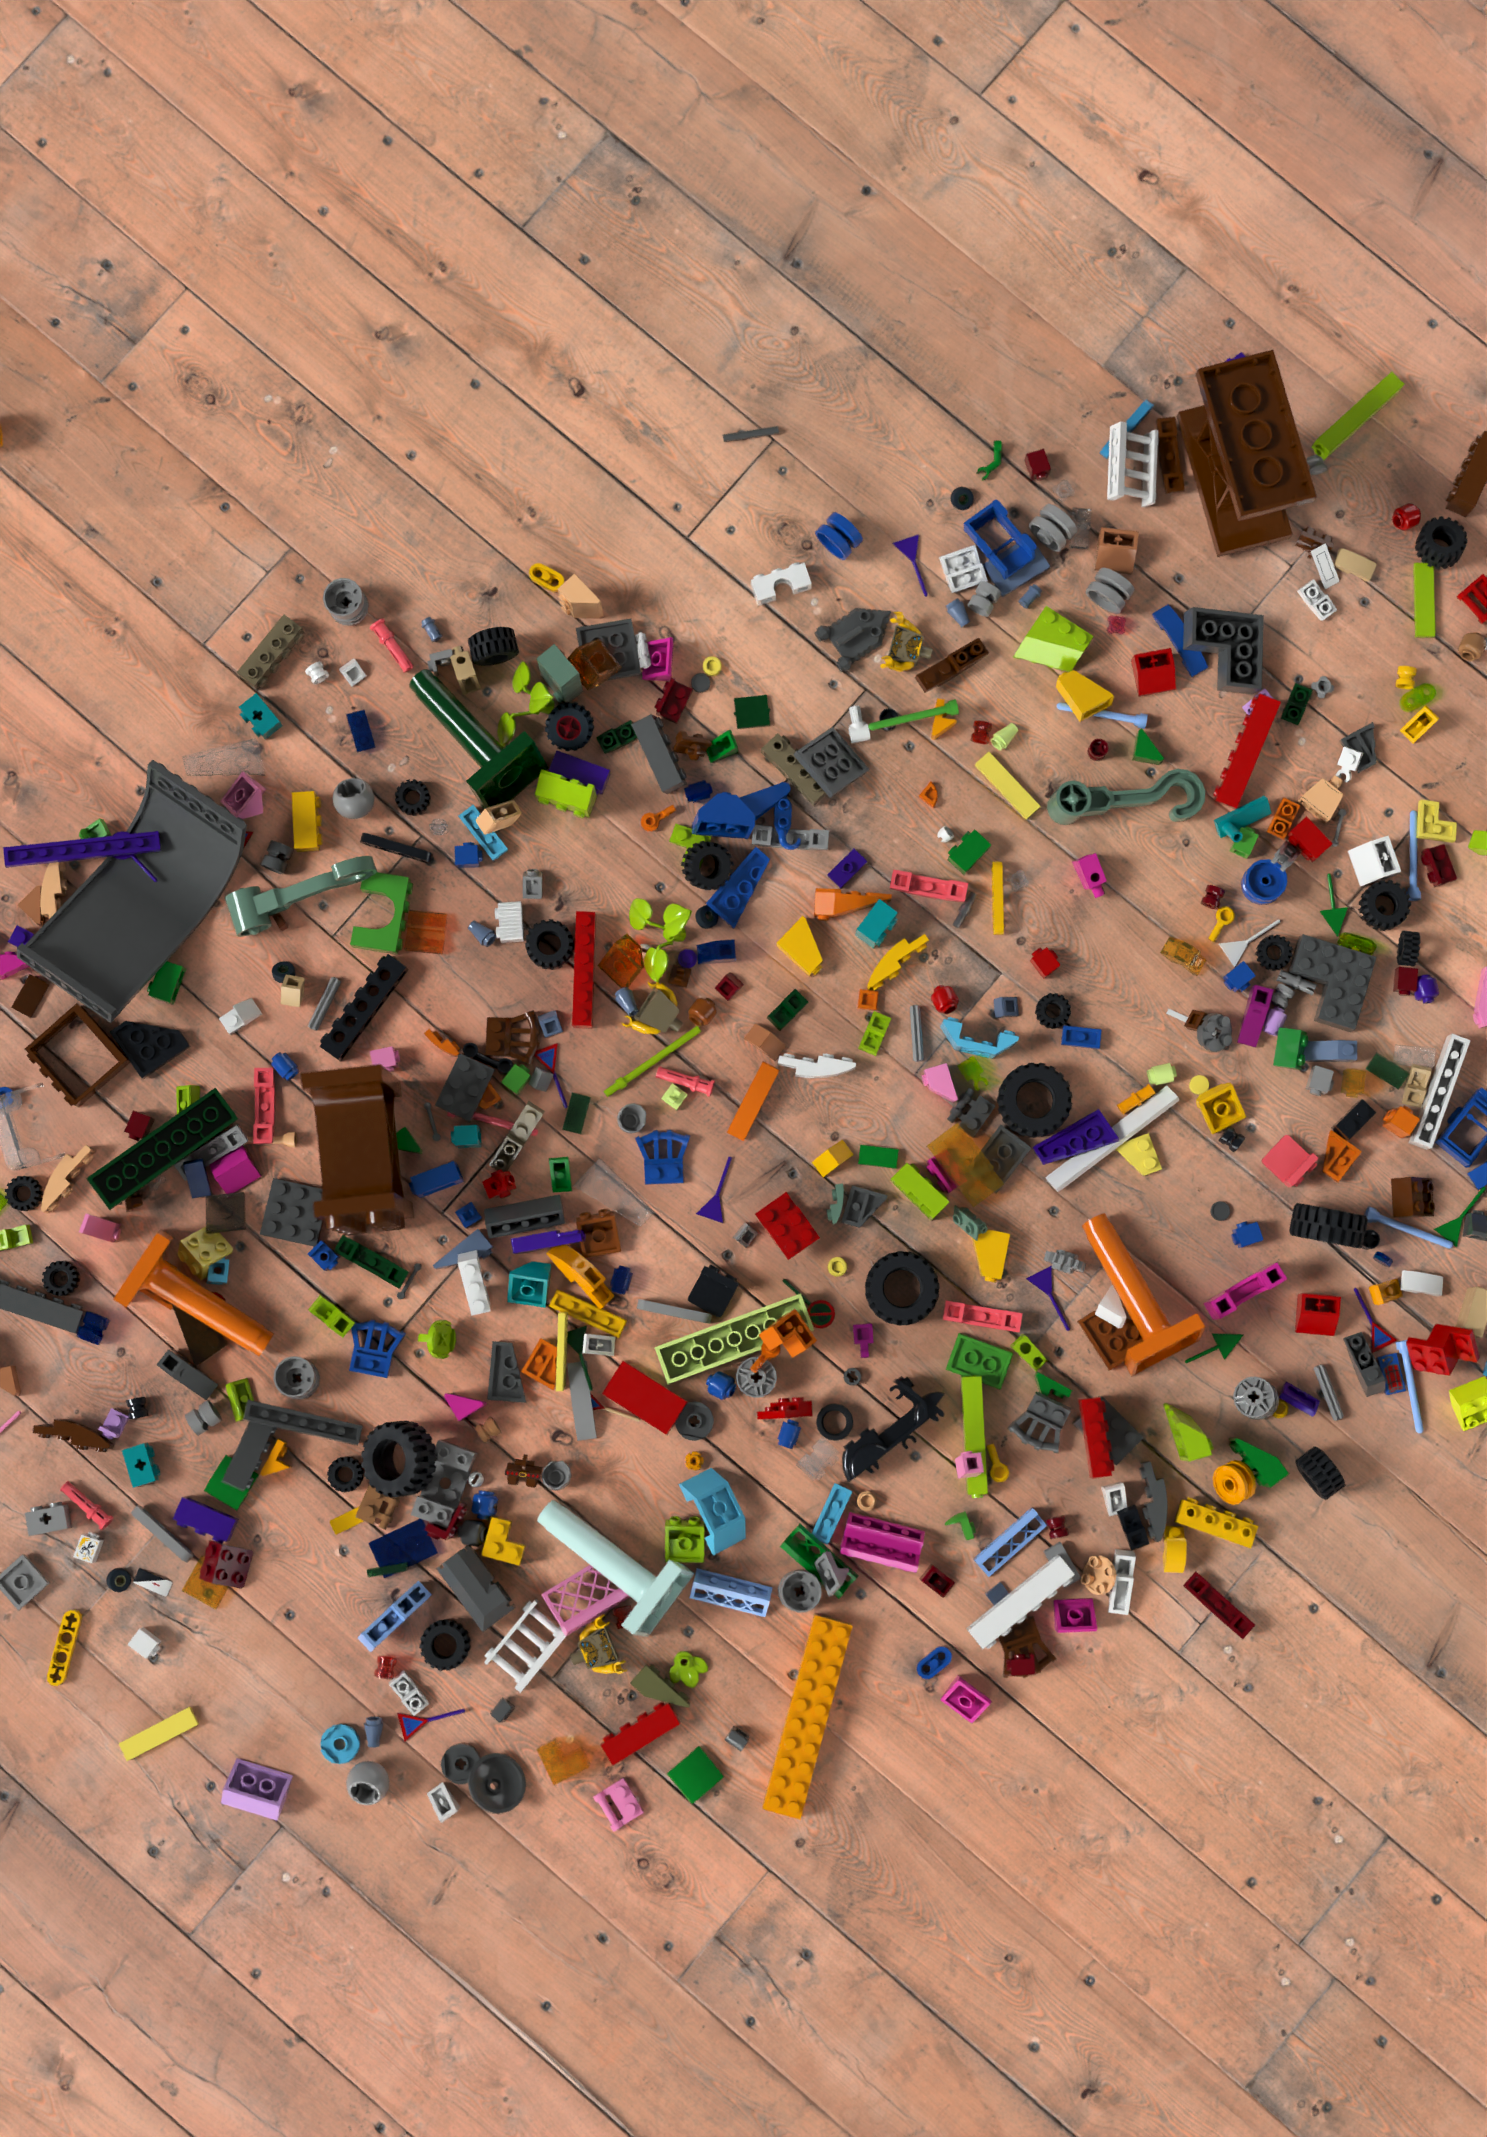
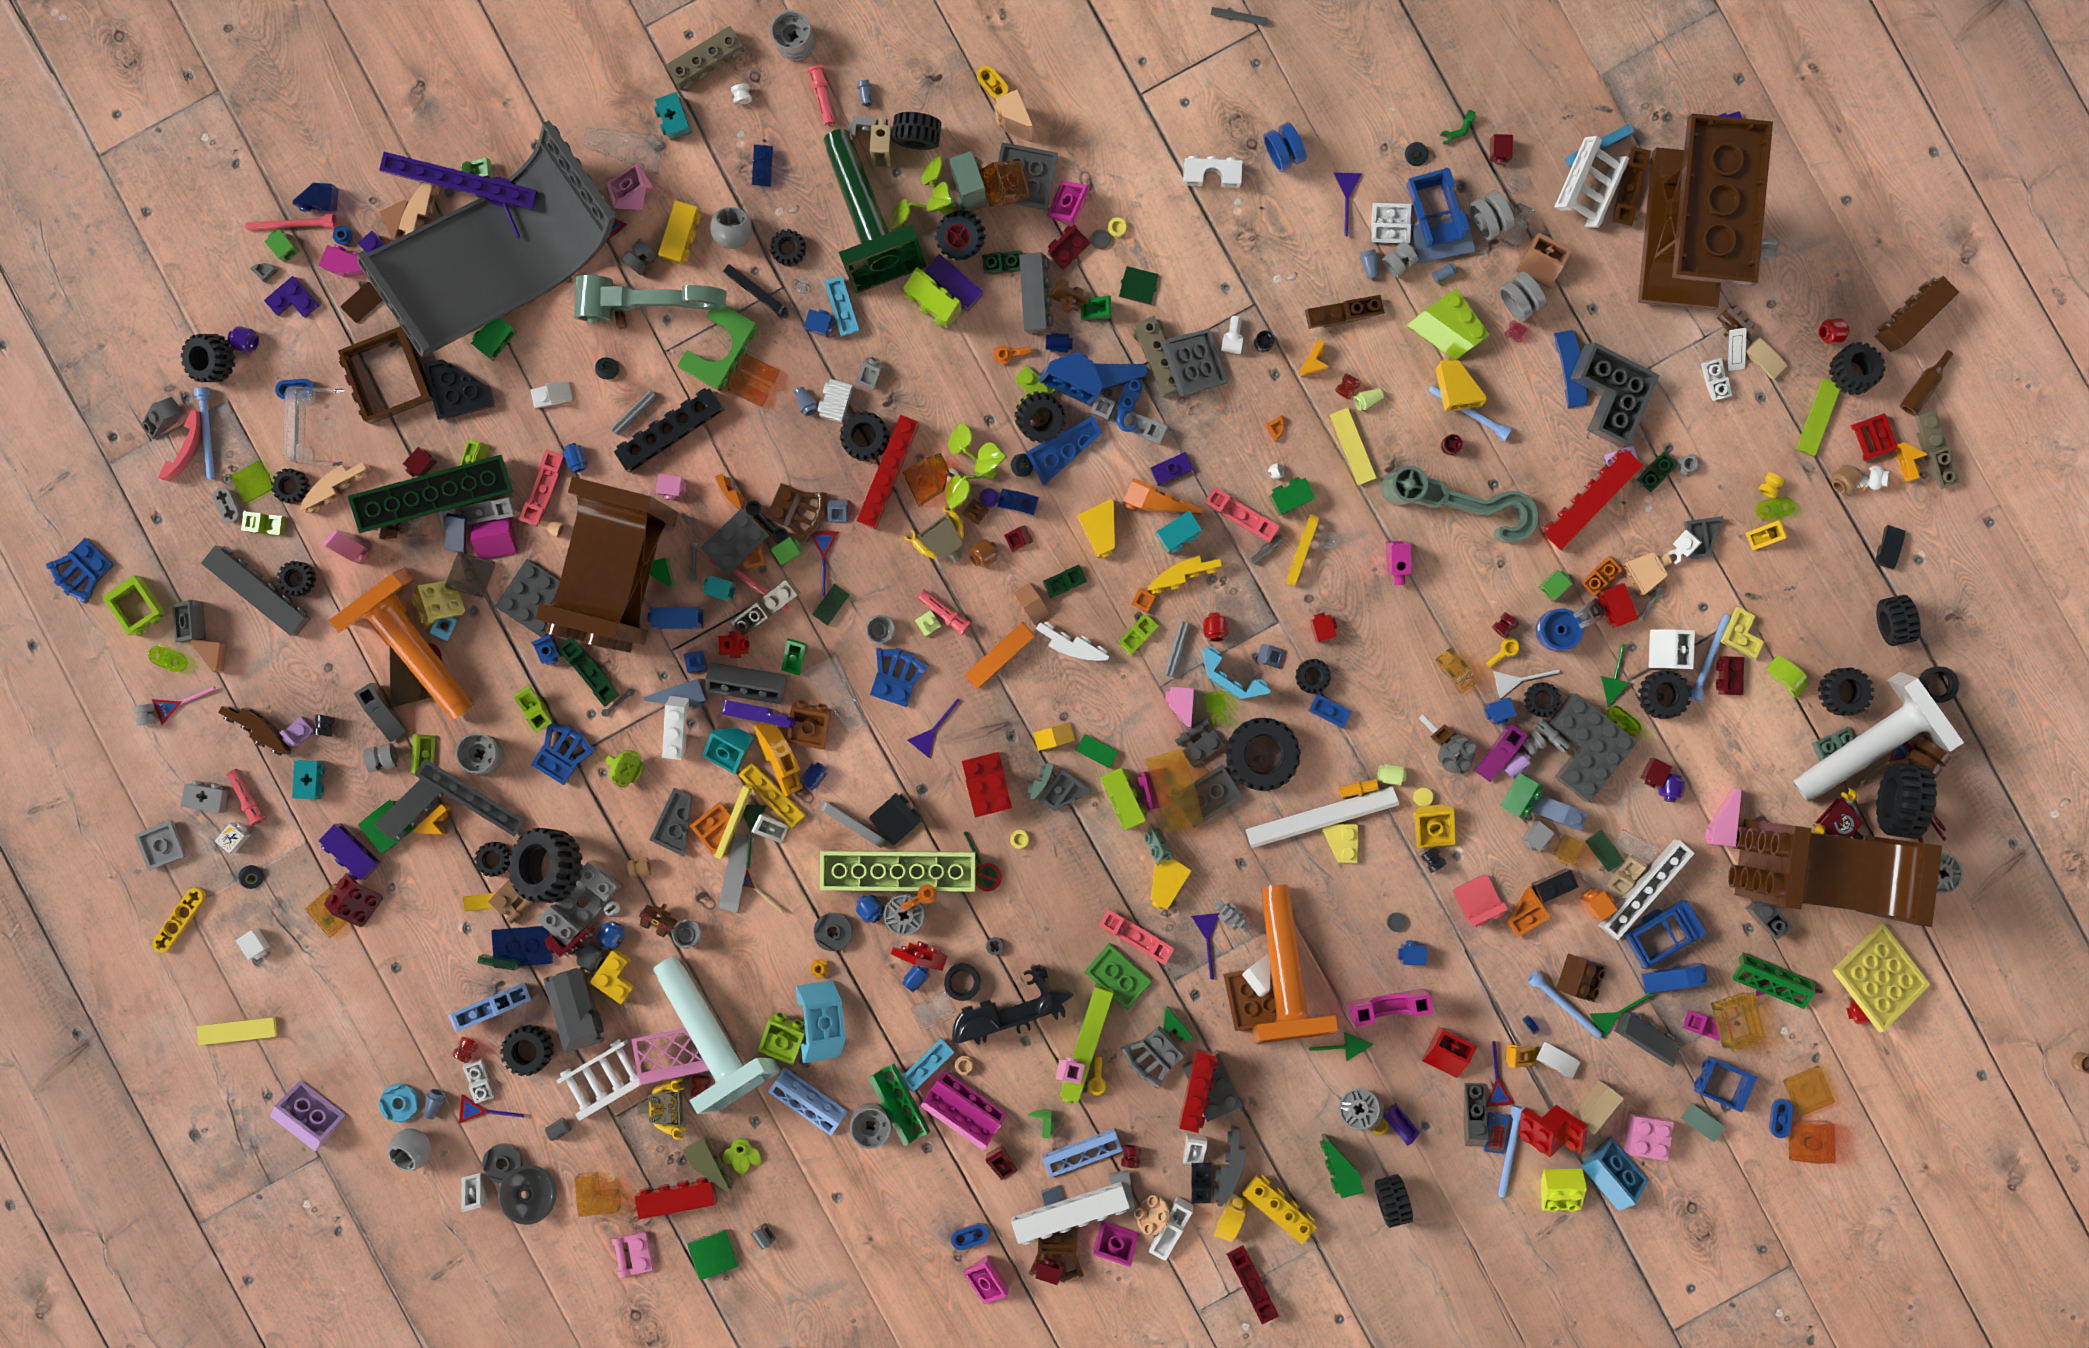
camera: 25 degrees right, 5 degrees up
(93, 1328) = (309, 636): clear blue wheel -> none
(152, 1582) = (281, 891): sticker -> none
(162, 1533) = (305, 850): light grey beam -> none
(292, 990) = (607, 389): tan brick -> none
(352, 672) = (776, 106): white slope -> none
(463, 1406) = (623, 837): dark pink slope -> none
(498, 817) = (860, 296): light nougat brick -> none
(540, 1079) = (809, 560): light grey slope -> none
(621, 1082) = (883, 591): lime bar -> none
(626, 1001) = (917, 516): sand blue cone -> none
(642, 650) = (1057, 187): white axle -> none
(645, 1397) = (795, 893): red tile -> none
(745, 1235) = (945, 777): light grey slope -> none
(790, 1332) = (950, 886): orange brick -> none
(807, 1716) = (834, 1241): light orange brick -> none
(829, 1572) = (903, 1121): light grey slope -> none
(855, 634) = (1264, 248): dark grey shield -> none
(863, 1335) = (1019, 913): magenta plate -> none
(905, 646) = (1307, 276): torso -> none
(928, 1288) = (1071, 909): black tyre -> none
(949, 708) = (1325, 352): bright green piece -> none
(1028, 1352) = (1166, 985): lime leg -> none
(1077, 1138) = (1290, 804): dark purple wing -> none
(1145, 750) = (1496, 461): green slope -> none
(1154, 672) = (1534, 390): red slope -> none
(1188, 1436) = (1284, 1120): lime wedge -> none
(1234, 1482) = (1310, 1178): light orange wheel -> none
(1247, 814) = (1562, 560): teal piece -> none
(1328, 1225) = (1491, 977): black tyre -> none
(1328, 1392) = (1431, 1128): light grey axle -> none
(1357, 416) = (1826, 215): lime brick -> none
(1372, 1240) = (1526, 1004): black wheel -> none
(1408, 948) = (1670, 743): black tyre -> none

